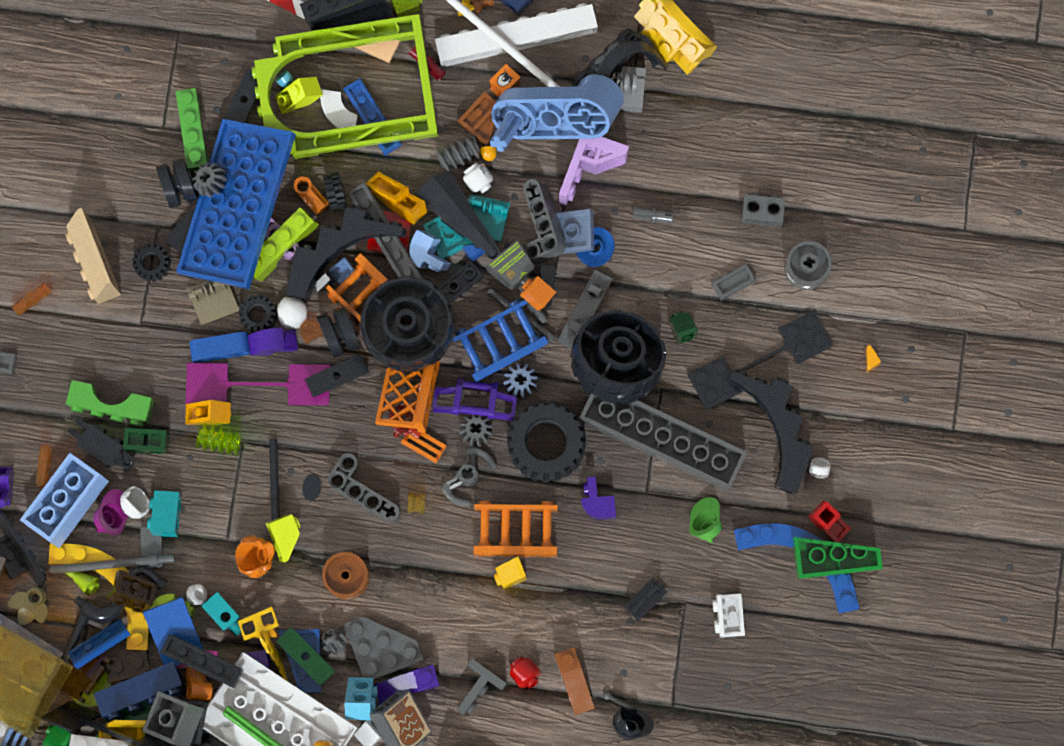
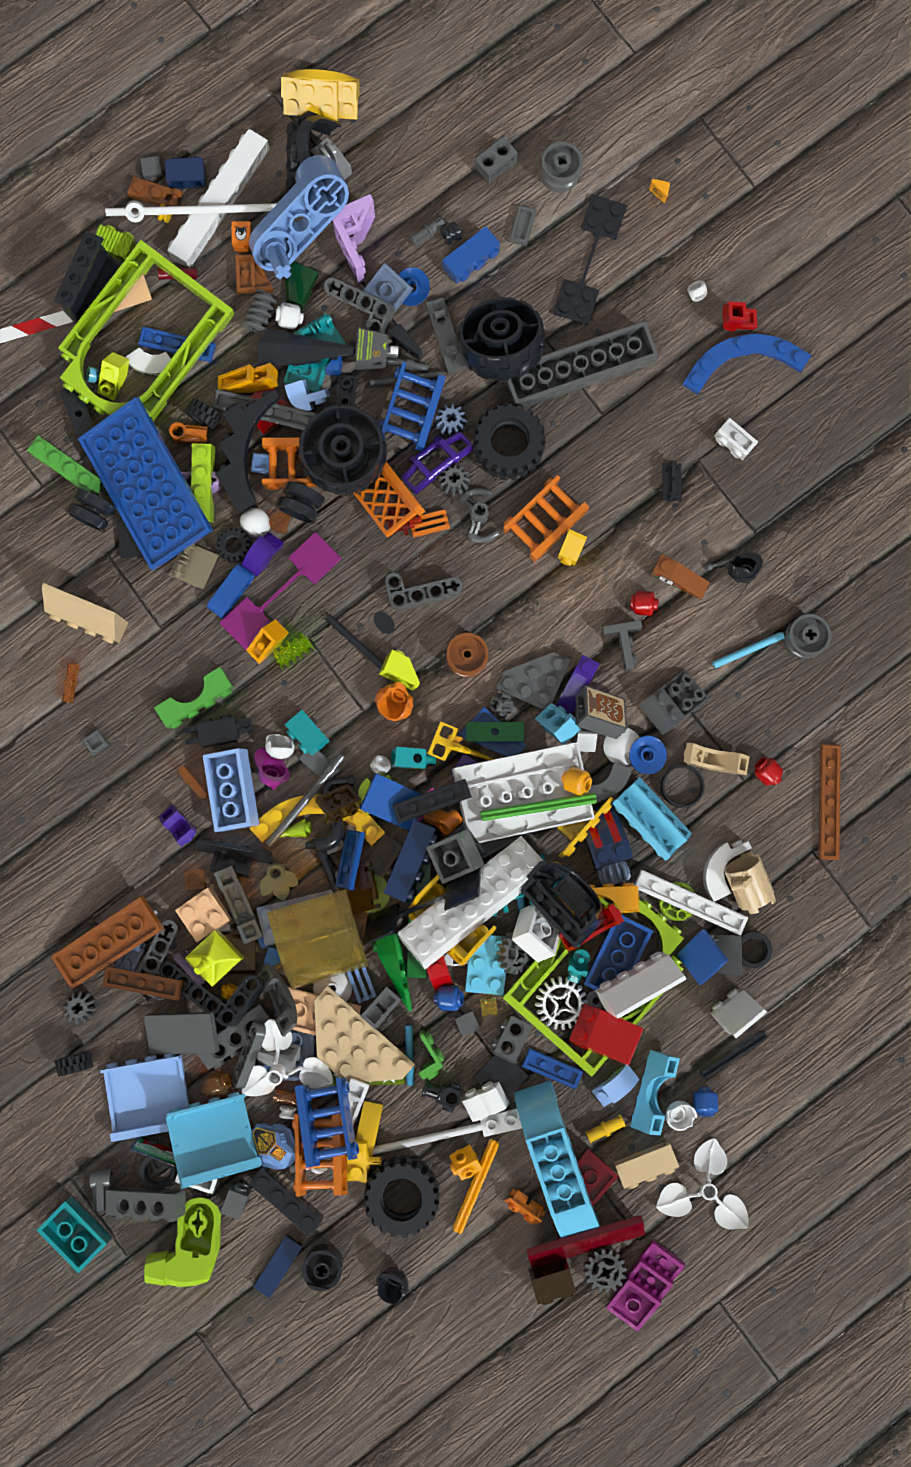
camera: 55 degrees left, 5 degrees up
(146, 441) = (245, 698): dark green brick -> none
(157, 273) = (127, 569): black tyre -> none
(209, 179) = (111, 484): dark grey gear -> none
(327, 279) = (257, 478): black tile -> none
(347, 371) = (330, 524): black tile -> none
(416, 503) = (464, 564): clear yellow wheel -> none
(488, 153) = (278, 293): light orange hinge -> none
(511, 160) = (300, 284): none -> dark green slope
(537, 292) = (407, 348): orange brick -> none
(597, 507) = (579, 453): dark purple brick -> none
(667, 267) = (471, 255): none -> blue brick
(669, 234) = (450, 233): none -> black wheel
(683, 327) = (521, 283): dark green slope -> none
(705, 519) = (659, 392): bright green piece -> none
(773, 398) = (625, 274): black arch -> none
(827, 558) = (761, 341): green wedge -> none

